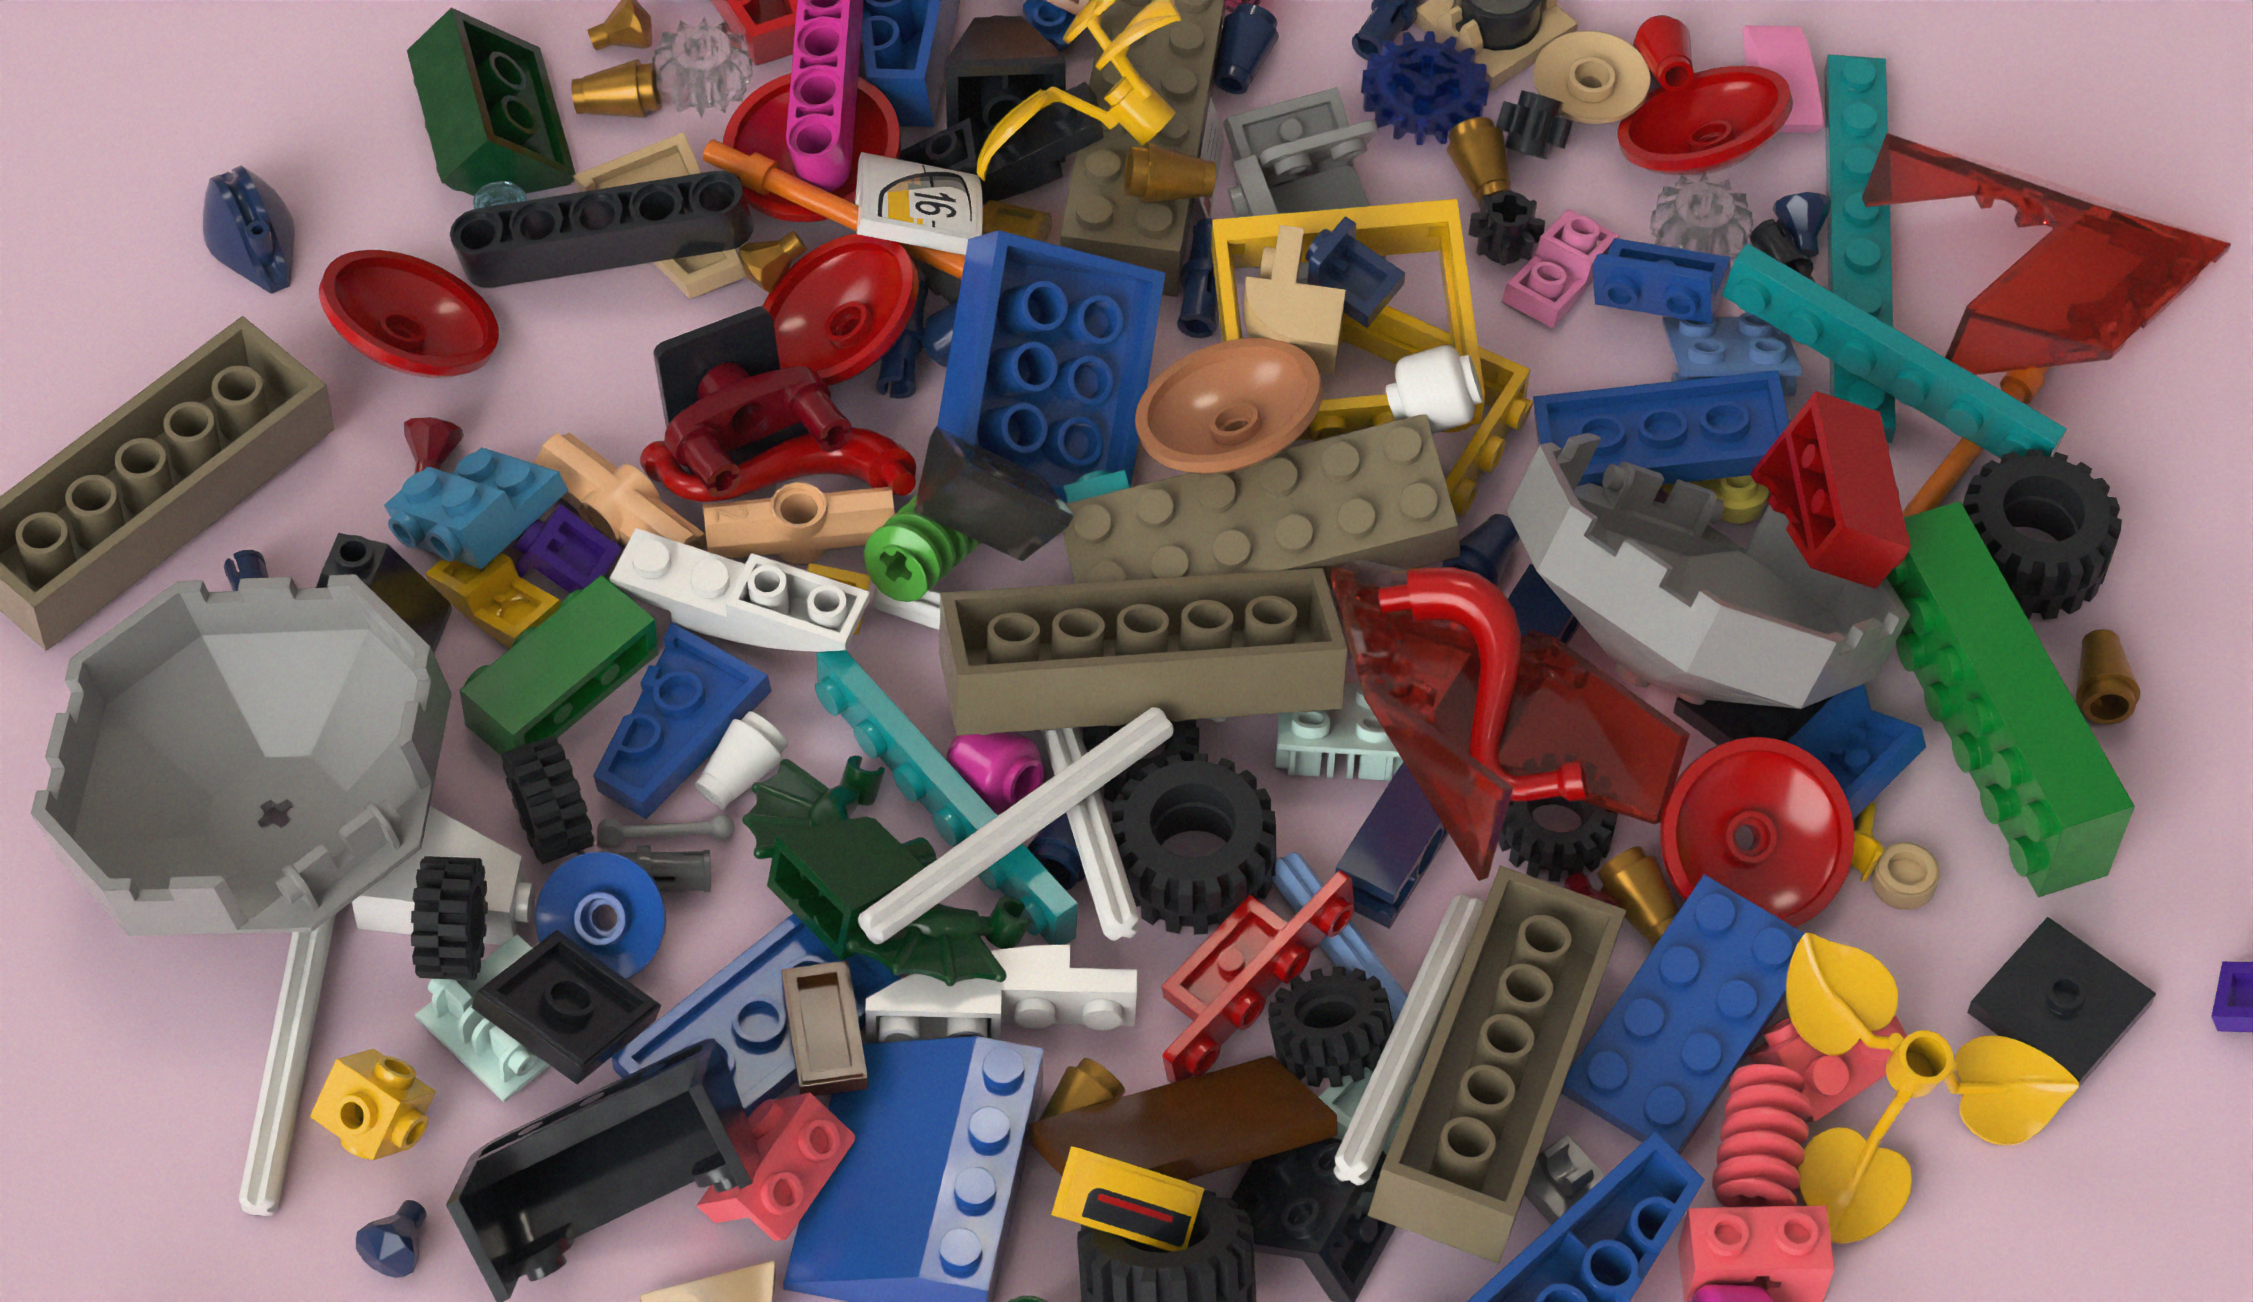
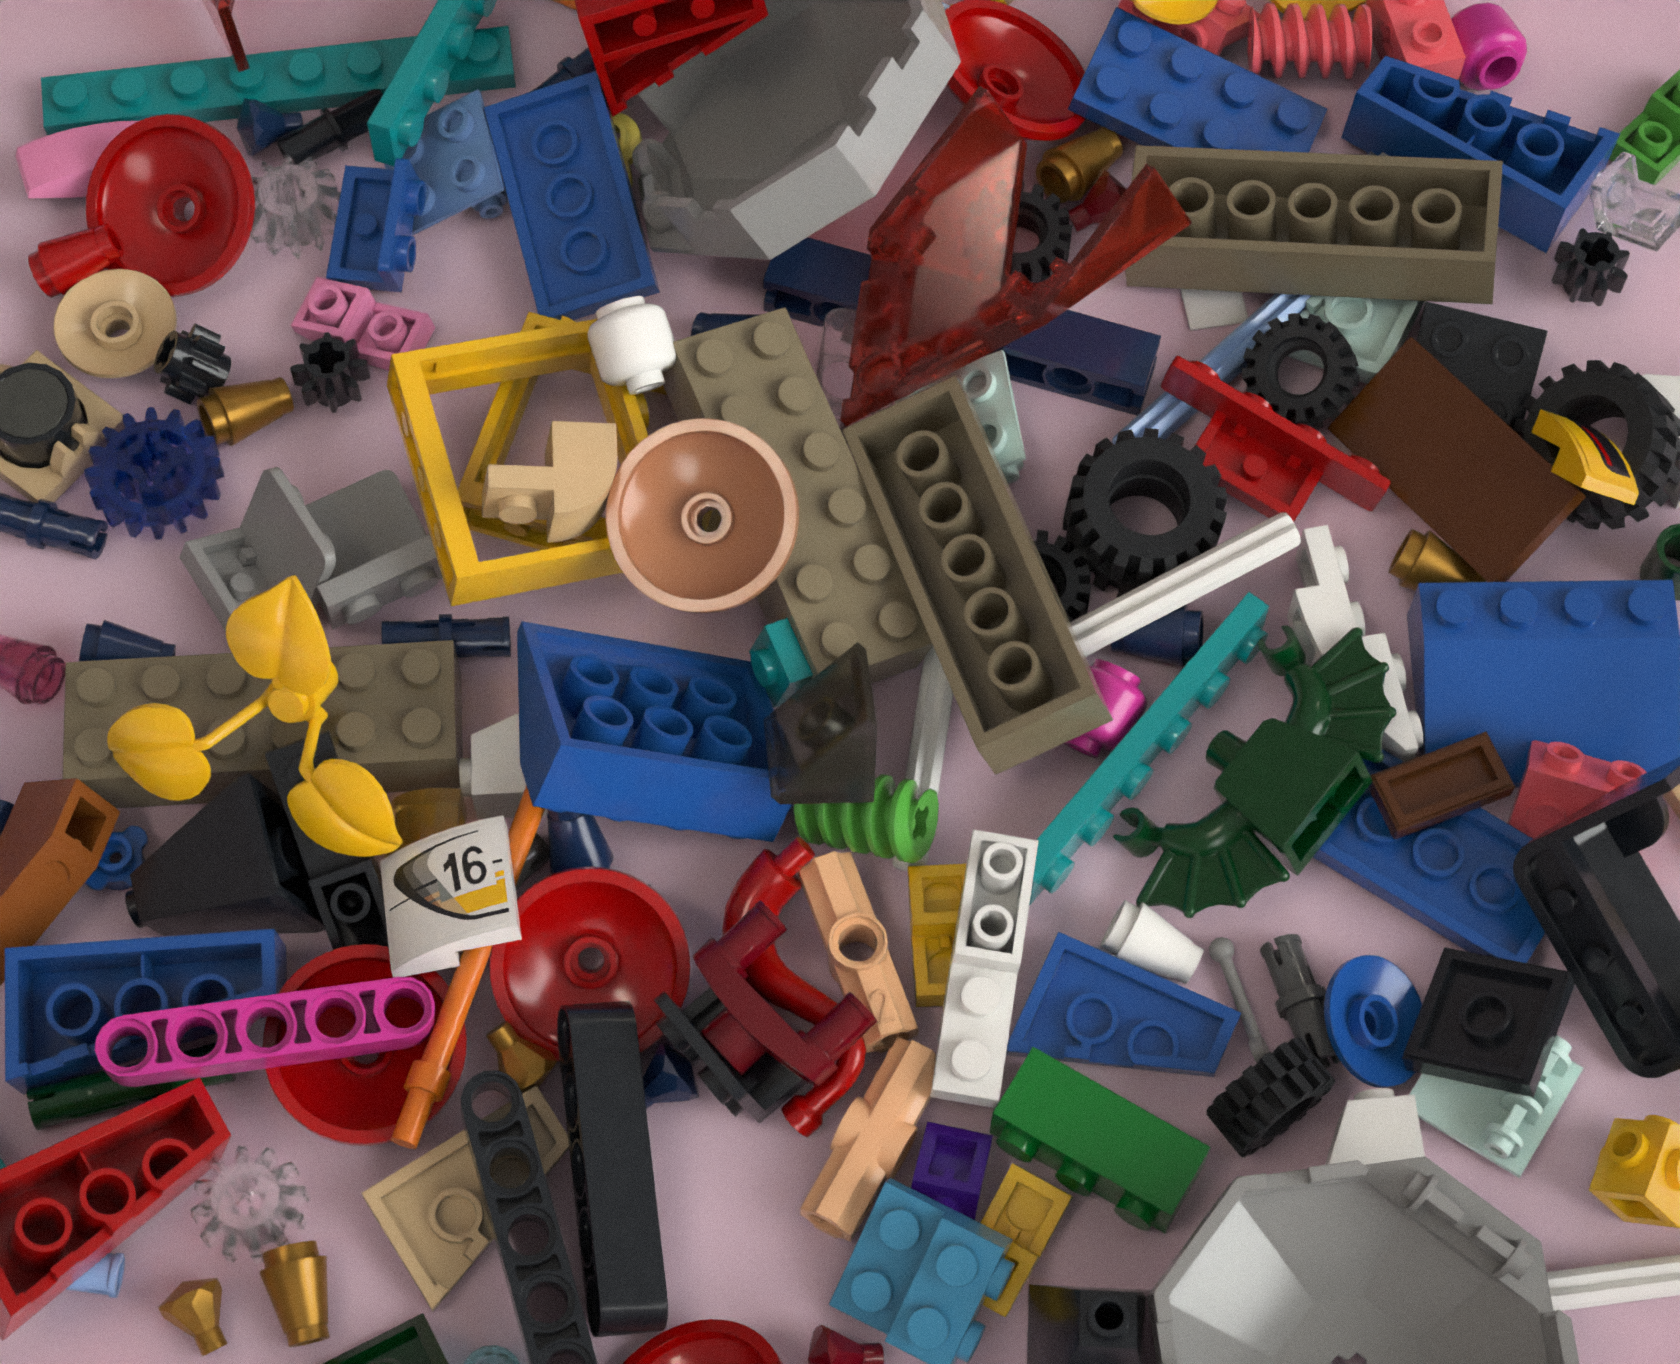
camera: 100 degrees left, 10 degrees up
(449, 918) = (1471, 1123): black tyre -> none
(640, 296) = (612, 1169): none -> black beam
(1015, 826) = (1210, 638): white axle -> none
(1166, 174) = (380, 651): pearl gold cone -> none
(1346, 264) = (512, 428): dark blue bracket -> none
(1407, 1043) = (1325, 300): white axle -> none
(1492, 621) = (904, 251): red animal -> none

